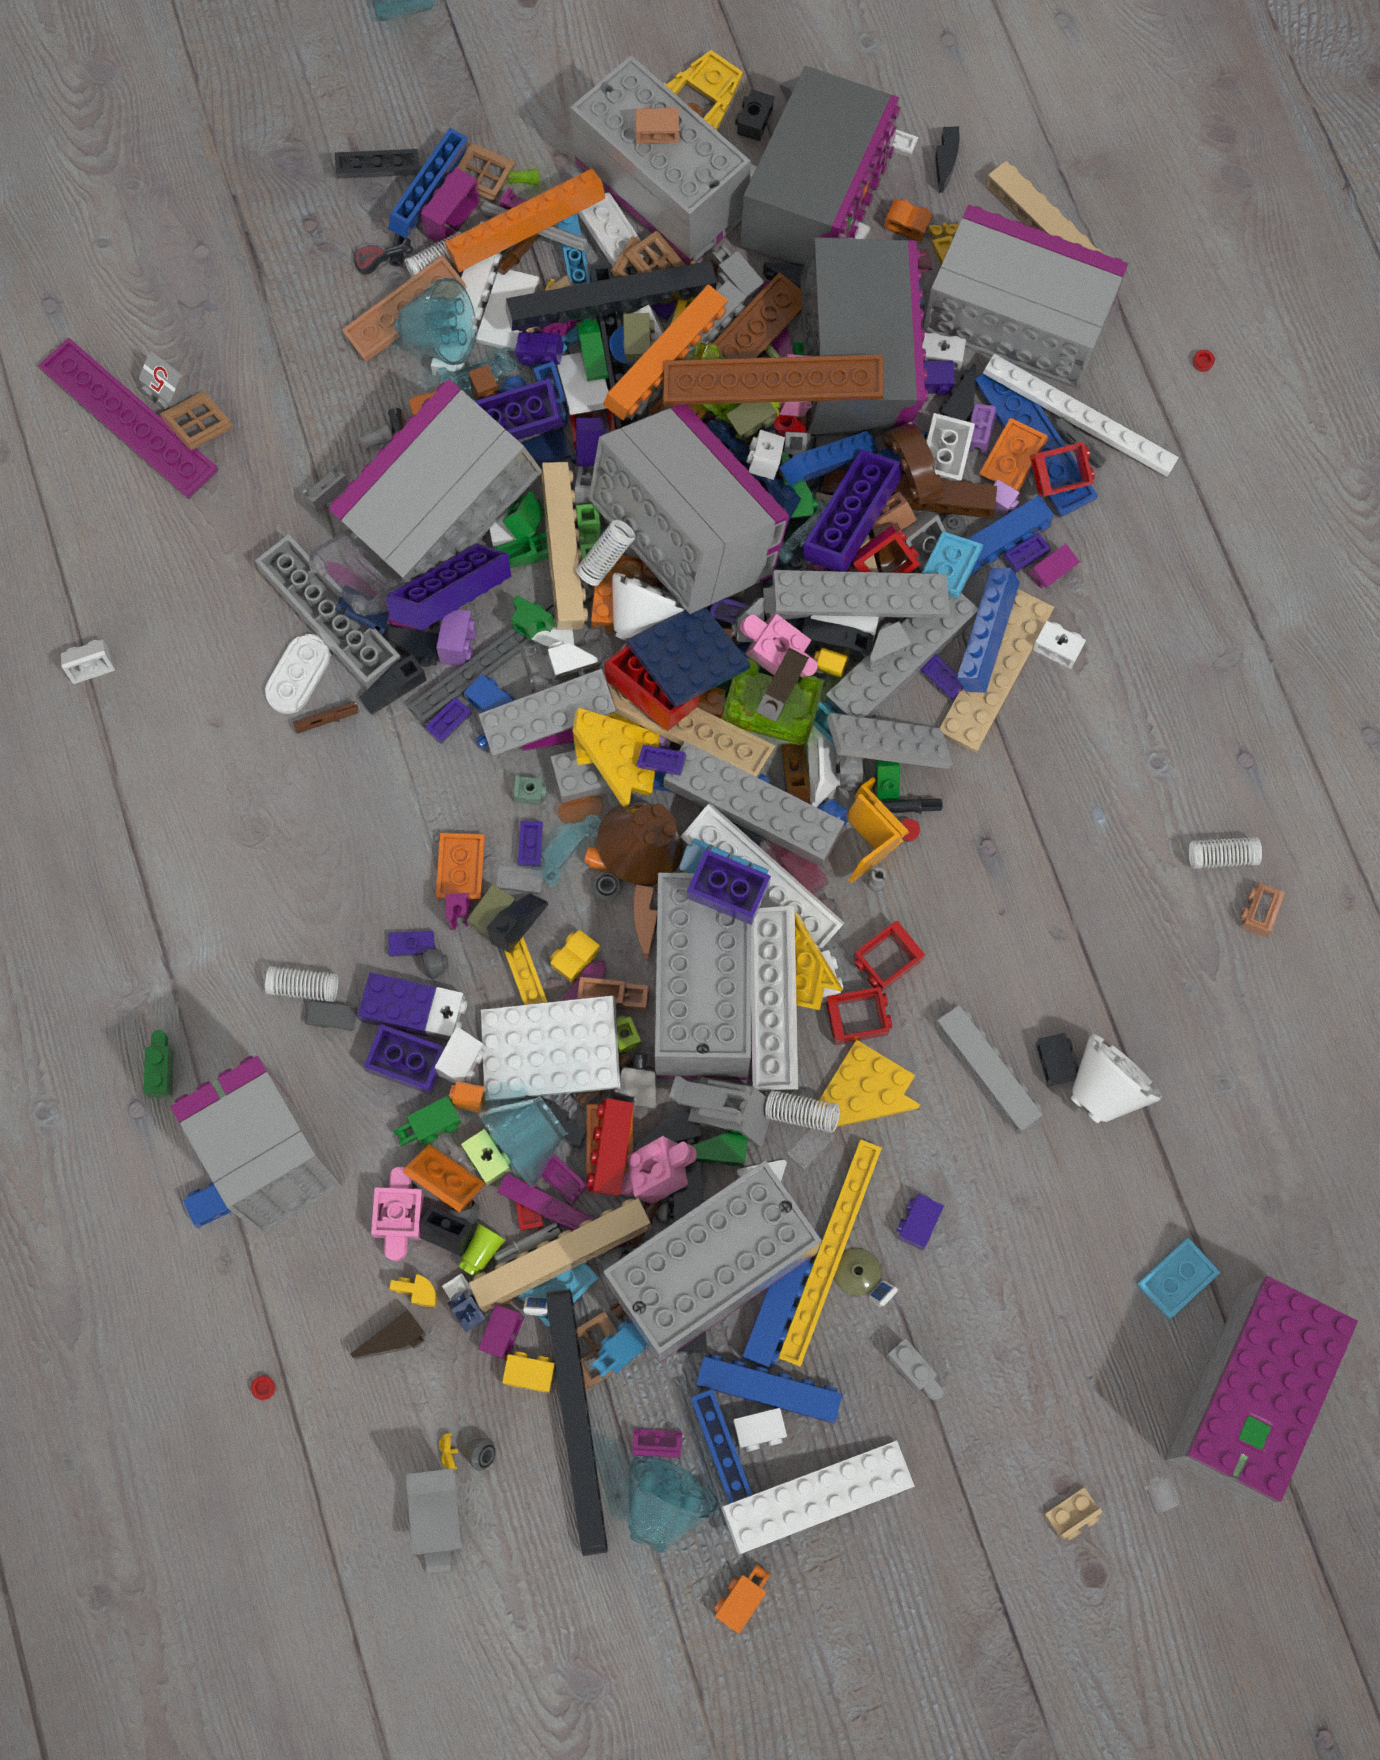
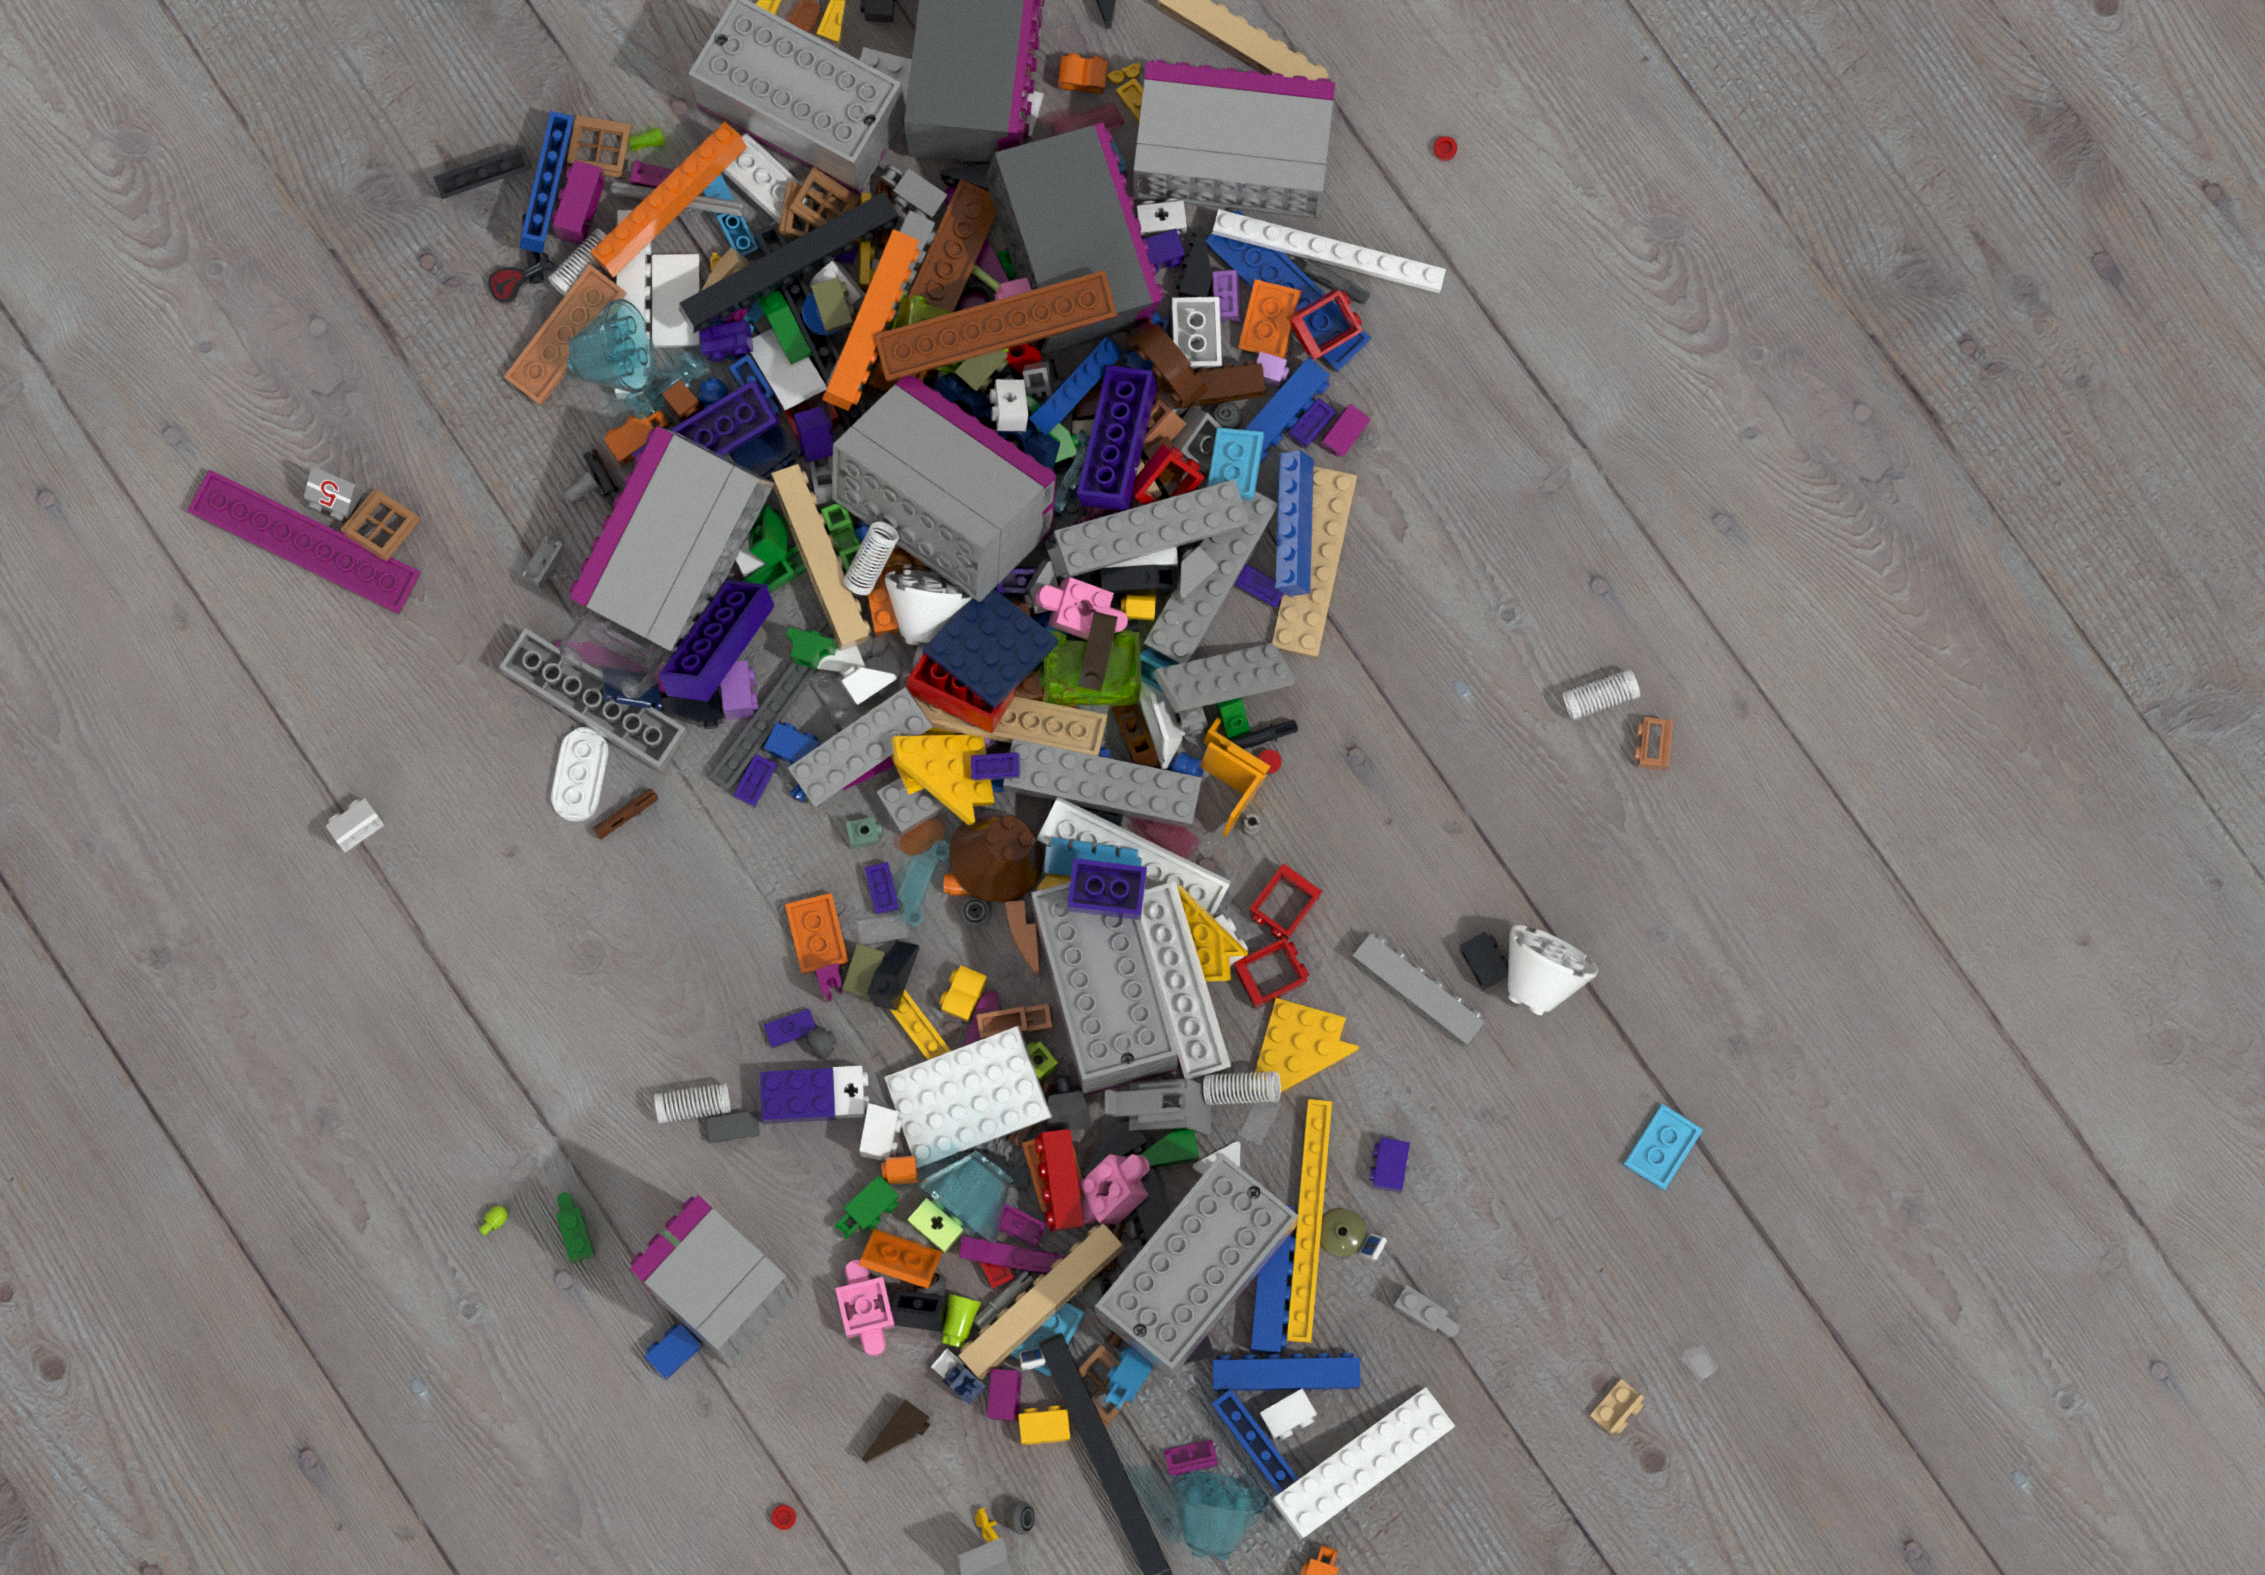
camera: 15 degrees left, 5 degrees up
(91, 1037) = (493, 1219): none -> lime cylinder
(394, 684) = (686, 759): black slope -> none
(404, 1059) = (823, 1150): dark purple brick -> none
(422, 1290) = (913, 1376): yellow brick -> none
(513, 256) = (664, 240): reddish brown axle -> none
(657, 125) = (790, 72): nougat brick -> none
(1048, 644) = (1384, 520): white brick -> none
(1262, 1391) = (1766, 1236): magenta piece -> none

